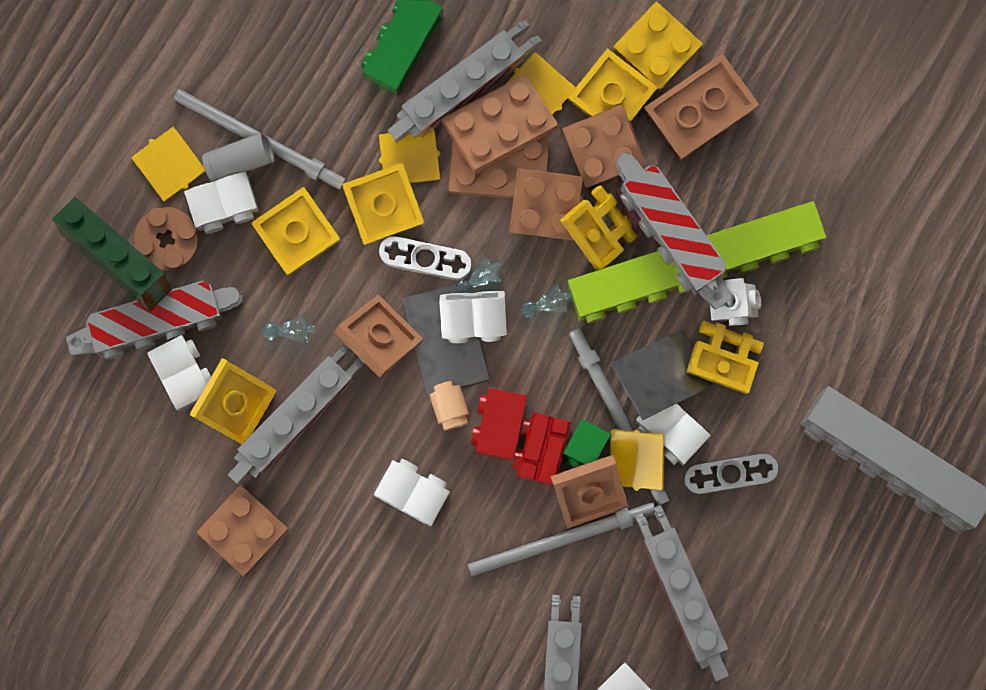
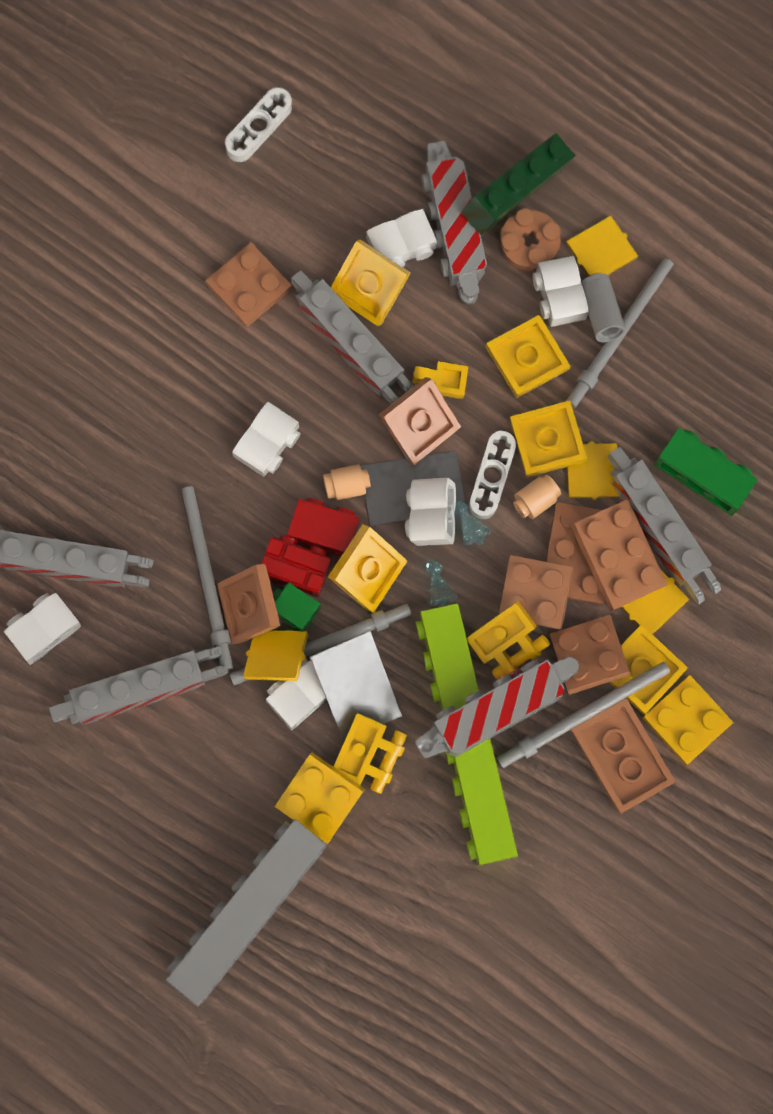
camera: 85 degrees right, 5 degrees down
(45, 518) = (260, 111): none -> white beam
(294, 329) = (434, 348): clear light blue piece -> none
(328, 312) = (447, 377): none -> yellow plate
(446, 211) = (536, 497): none -> light nougat brick
(540, 374) = (367, 568): none -> yellow plate
(700, 200) = (529, 746): none -> light grey bar
(743, 304) = (420, 773): white brick -> none
(753, 461) = (243, 724): light grey beam -> none
(775, 401) = (319, 797): none -> yellow plate

